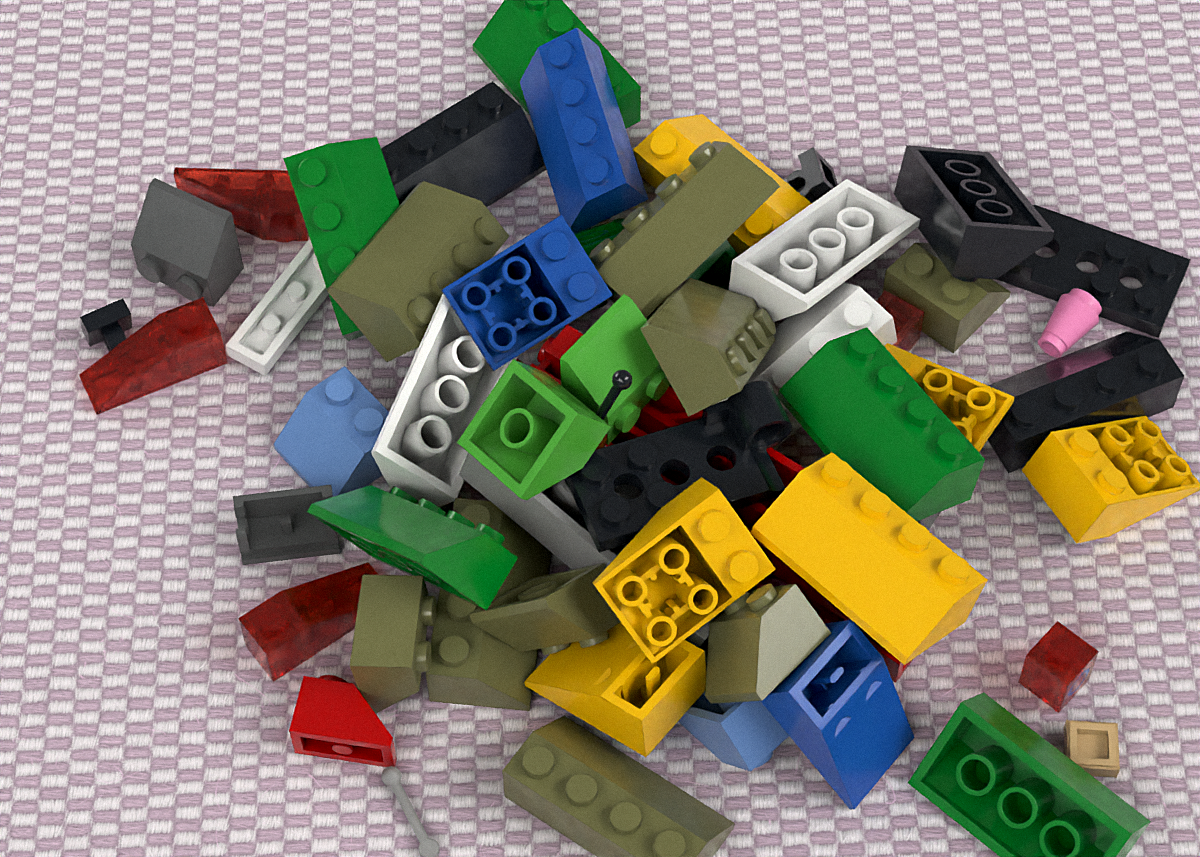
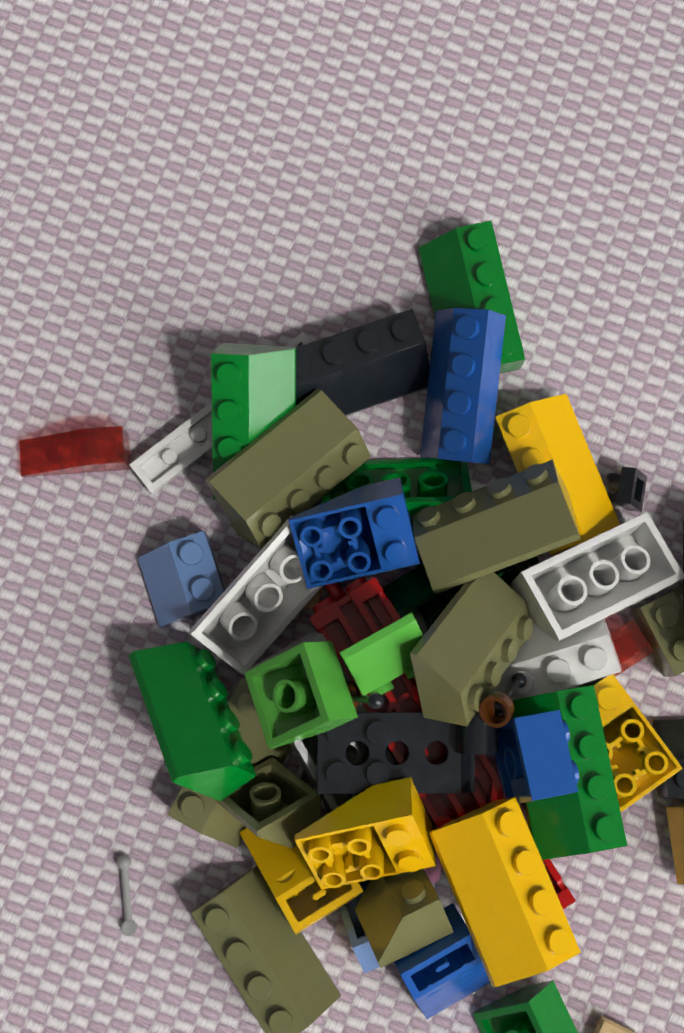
camera: 20 degrees right, 25 degrees up
(107, 324) = (51, 411): black tile -> none
(186, 243) = (127, 366): dark grey slope -> none
(258, 199) = (190, 333): clear red slope -> none
(280, 528) = (117, 635): dark grey hinge -> none
(303, 620) = (102, 722): clear red slope -> none
(339, 724) = (100, 813): red slope -> none
(391, 638) = (146, 785): olive slope -> none
(762, 366) = (501, 703): none -> reddish brown hinge
(834, 405) = (536, 758): none -> blue slope
(1058, 666) = (616, 980): clear red brick -> none

